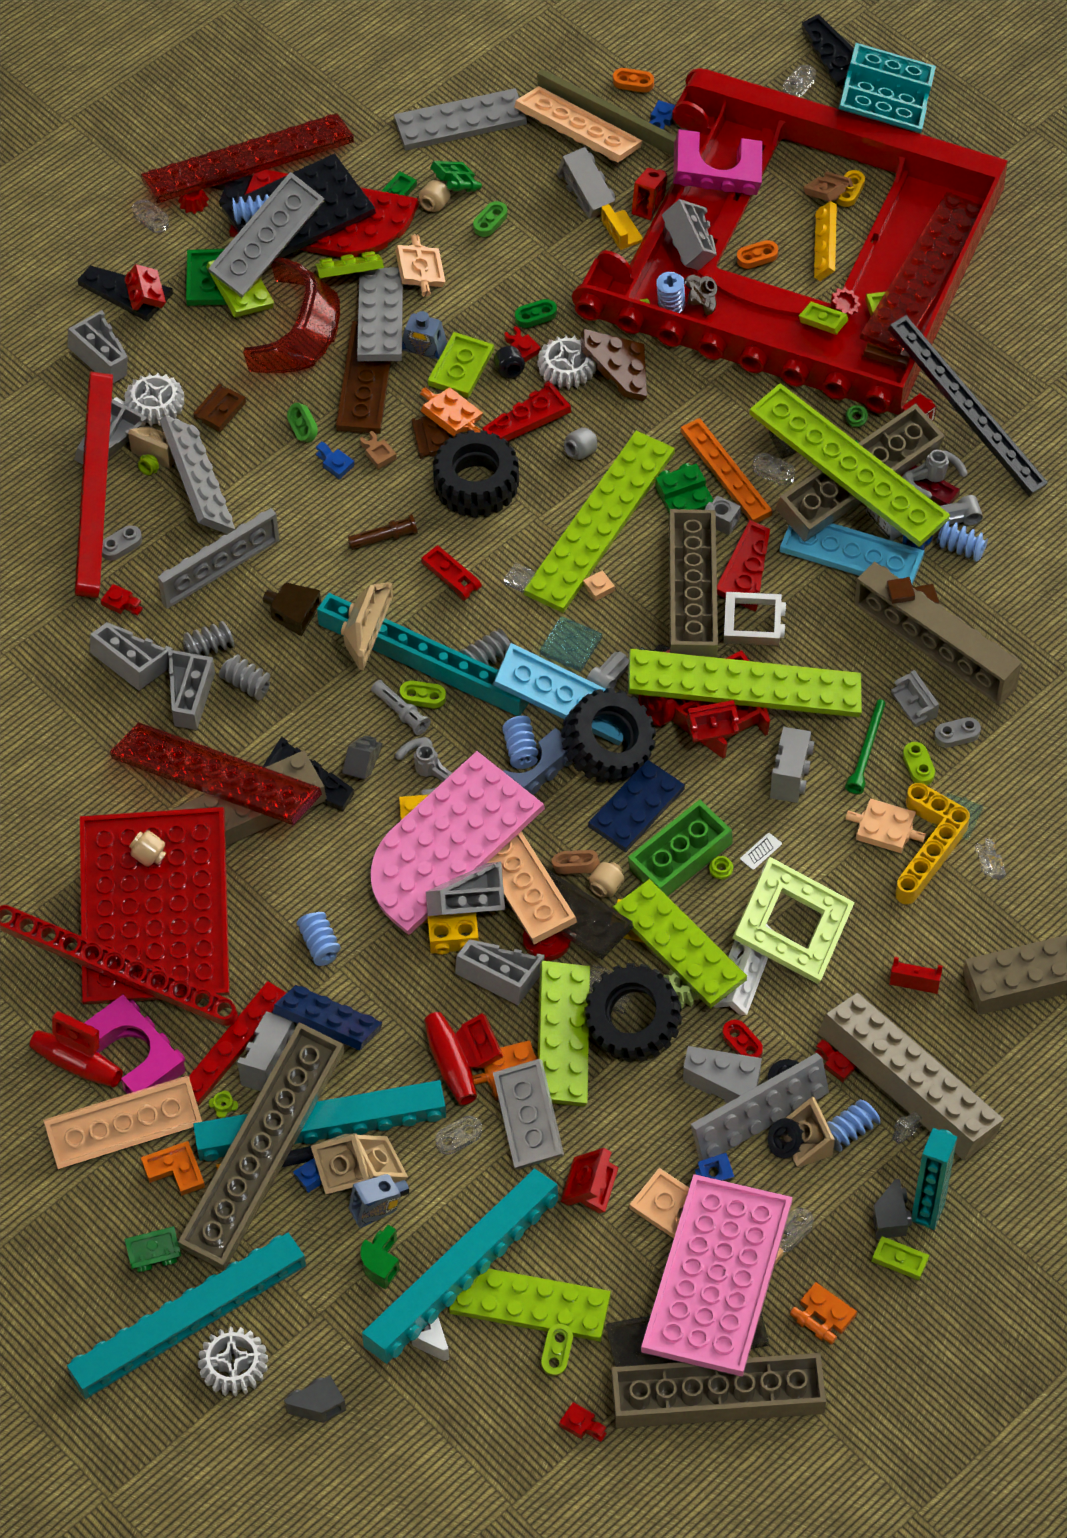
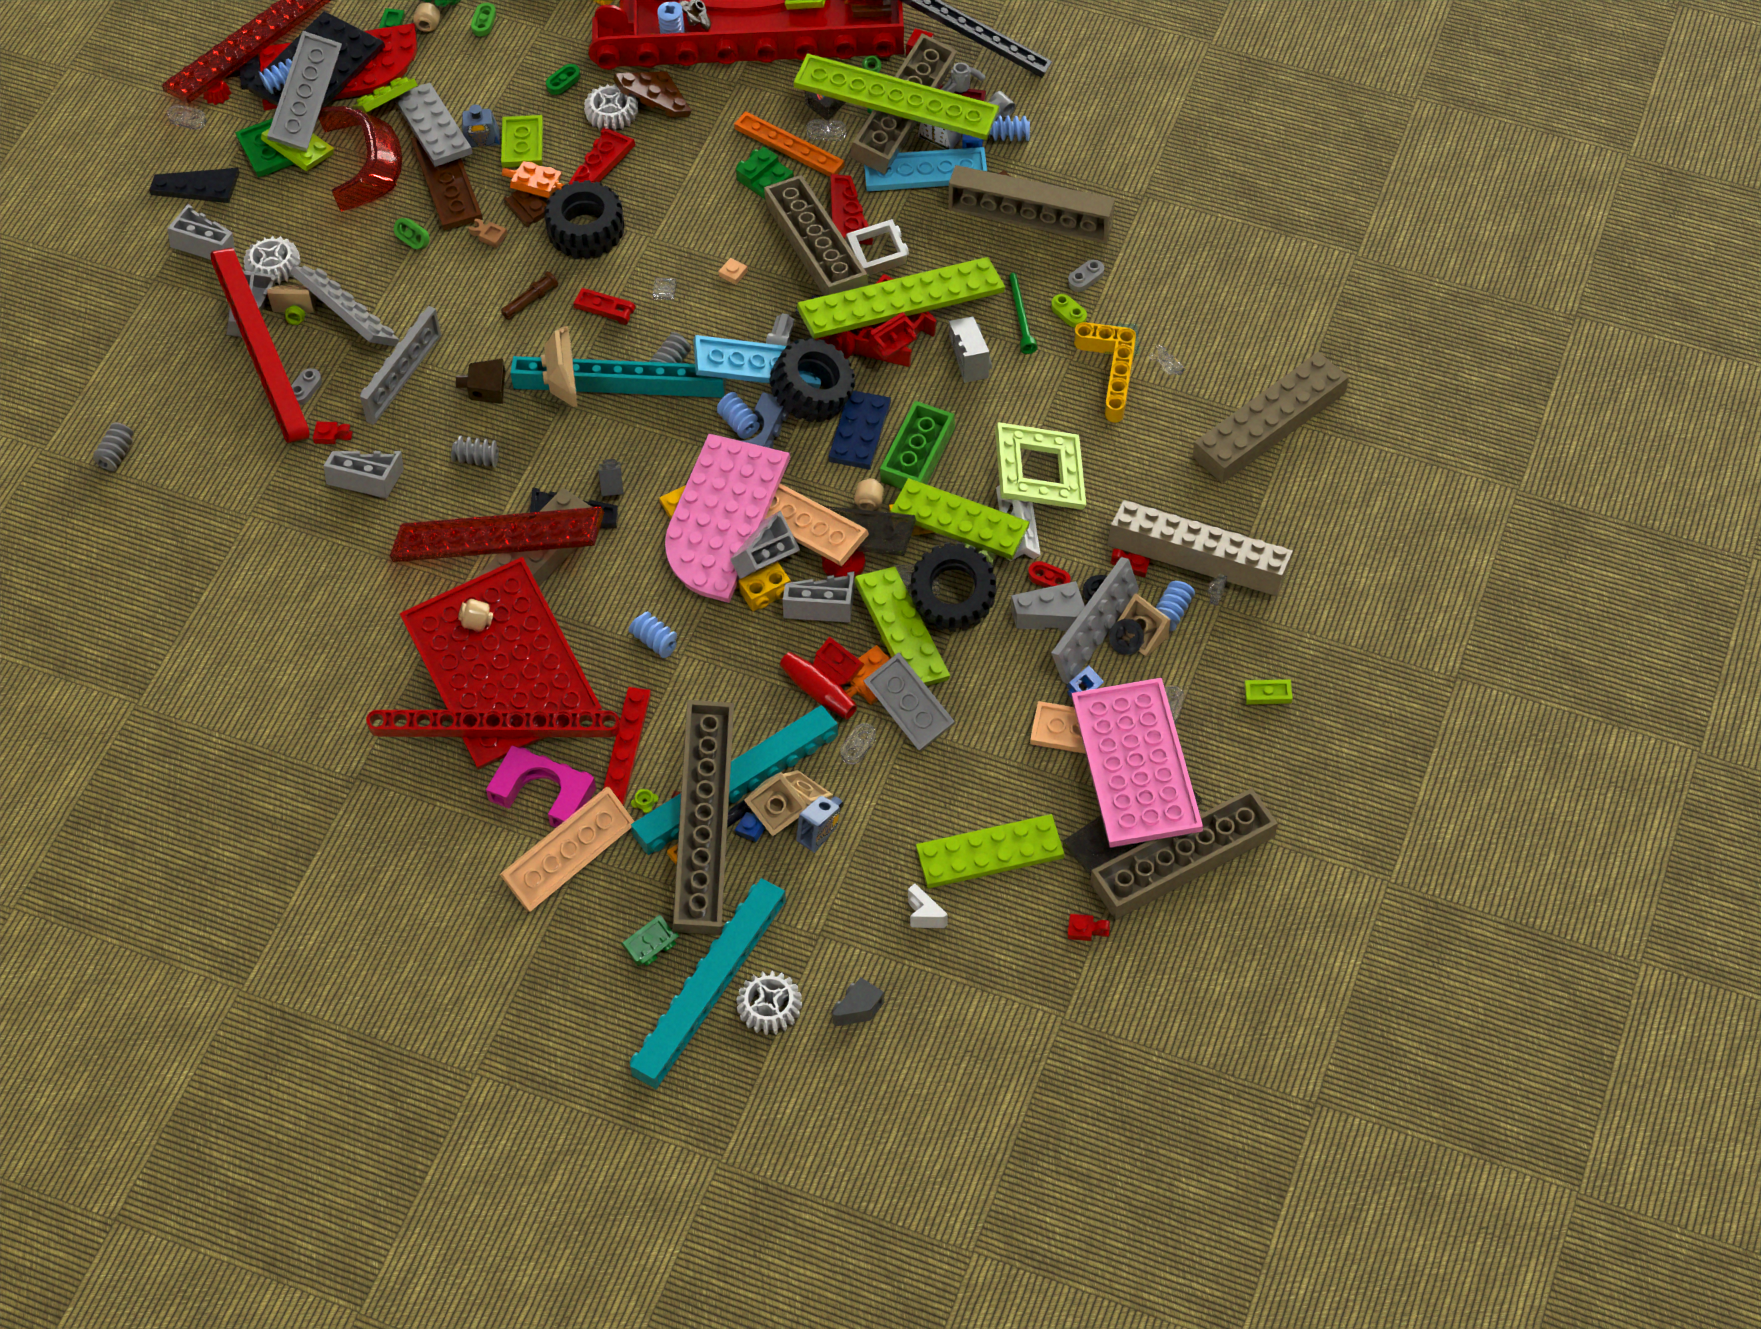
camera: 25 degrees left, 0 degrees up
(74, 1049) = (495, 806): red plate -> none
(144, 287) = (214, 173): red bracket -> none
(178, 1162) = (630, 862): orange plate -> none
(190, 685) = (430, 477): light grey wedge -> none
(208, 639) = (424, 434): light grey piece -> none
(219, 407) = (332, 247): reddish brown plate -> none
(265, 1051) = (661, 743): light grey wedge -> none
(327, 1017) = (676, 693): dark blue plate -> none
(335, 463) = (456, 256): blue plate -> none
(376, 1261) = (847, 872): green brick -> none
(407, 712) = (629, 429): light grey pin -> none
(420, 265) = (445, 75): light nougat plate -> none
(423, 694) = (634, 409): lime plate -> none
(425, 760) = (667, 461): light grey piece -> none
(460, 1266) = (921, 845): teal brick -> none
(509, 362) = (562, 124): black head -> none
(525, 344) = (565, 109): red plate -> none
(557, 1350) = (1035, 879): lime plate -> none
(571, 643) = (735, 322): clear light blue tile -> none
(575, 862) = (836, 491): medium nougat plate -> none
(580, 443) = (658, 166): light grey head -> none
(590, 1180) = (987, 733): red bracket -> none
(599, 521) = (705, 222): lime plate -> none
(724, 862) = (956, 445): lime plate -> none
(730, 514) = (809, 173): light grey brick -> none
(761, 851) = (980, 426): white sticker -> none
(826, 1307) = (1233, 755): orange plate -> none
(886, 826) = (1069, 367): light nougat plate -> none
(890, 1214) = (1242, 660): dark grey slope -> none
(900, 590) = (990, 178): reddish brown tile -> none
(915, 699) = (1039, 262): light grey hinge -> none
(915, 977) = (1158, 473): red hinge -> none
(934, 1178) = (1274, 611): teal brick -> none

